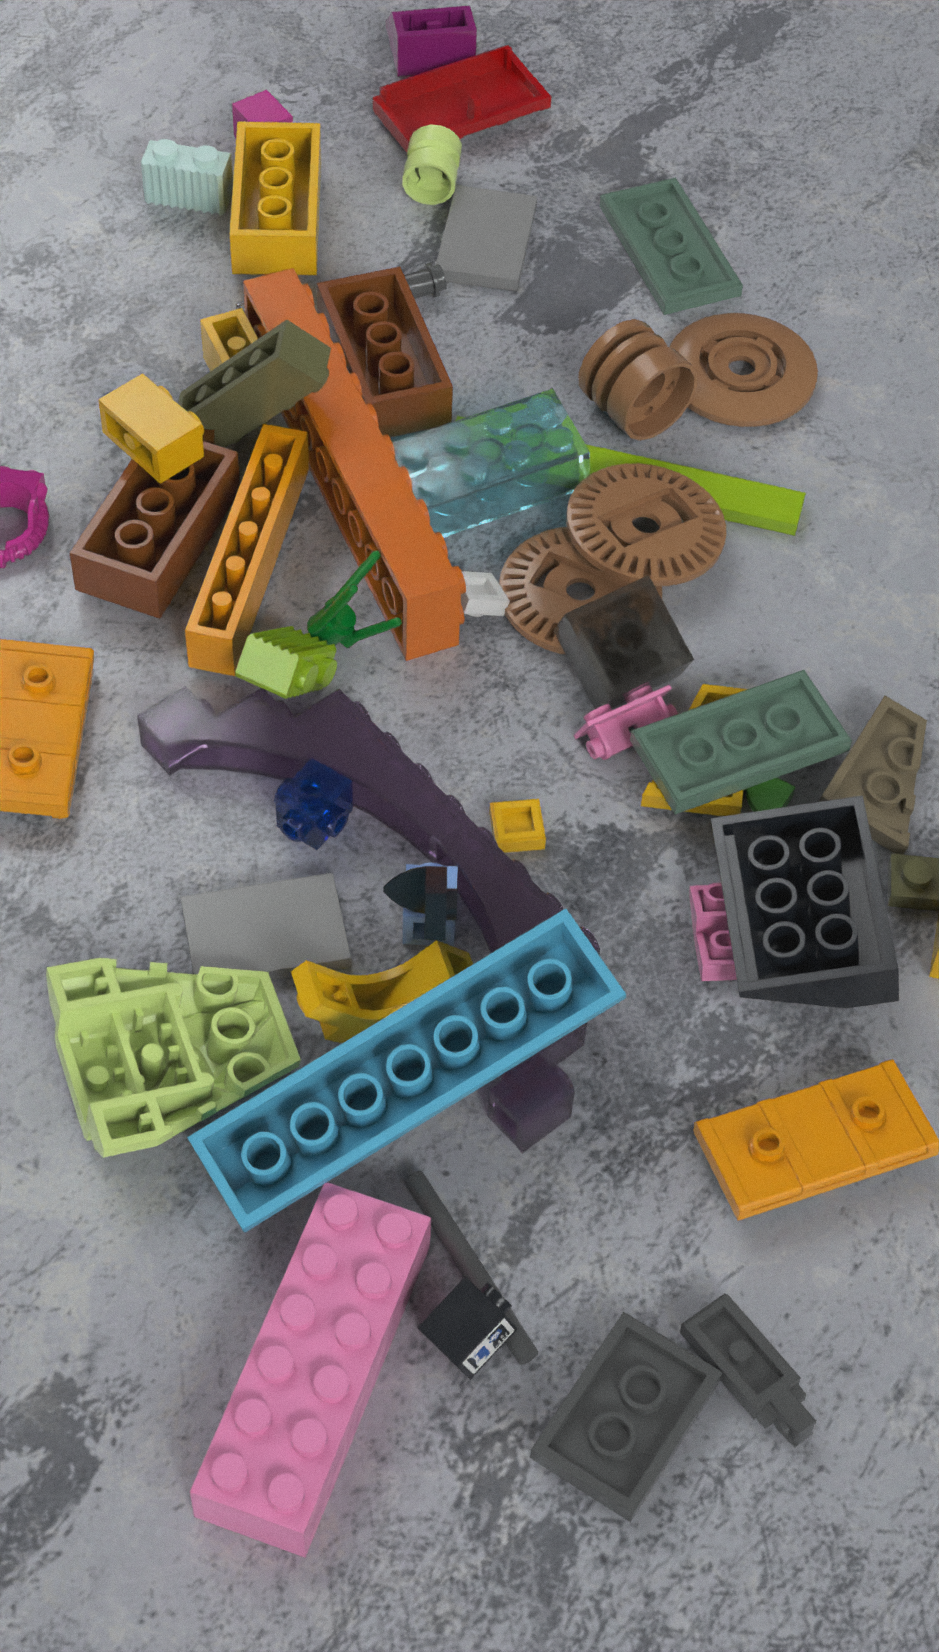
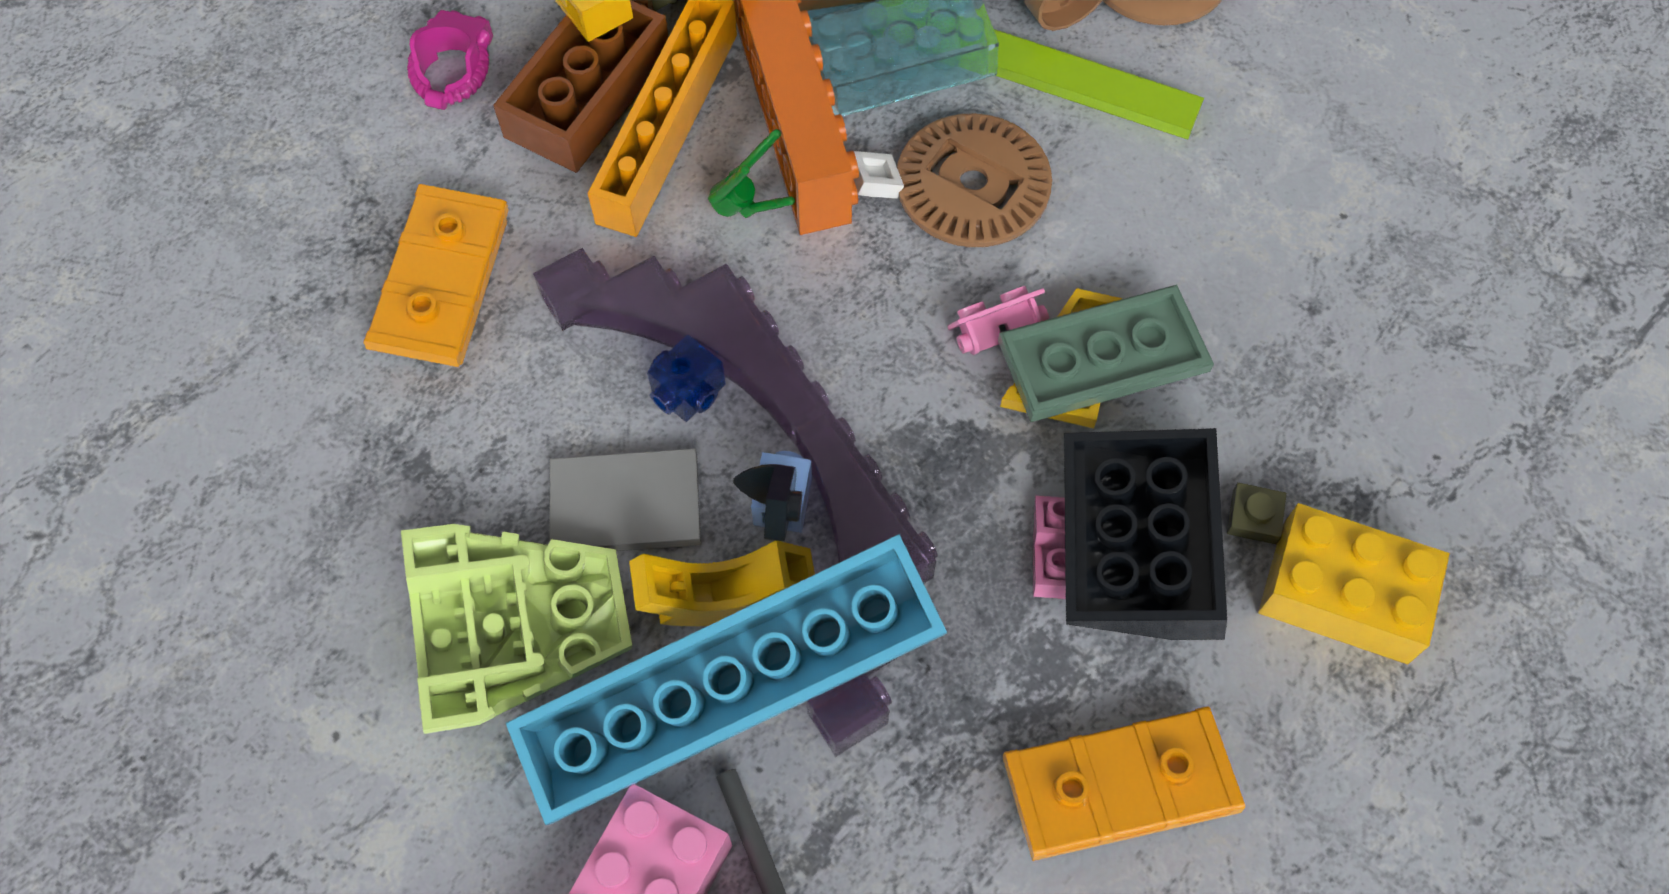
camera: 10 degrees right, 10 degrees up
(287, 662) = (681, 231): lime brick -> none
(517, 825) = (879, 415): yellow tile -> none
(623, 643) = (1004, 242): clear smoke brick -> none
(631, 491) = (1036, 153): medium nougat piece -> none
(769, 795) = (1126, 411): bright green tile -> none
(884, 771) = (1239, 397): dark tan wing -> none

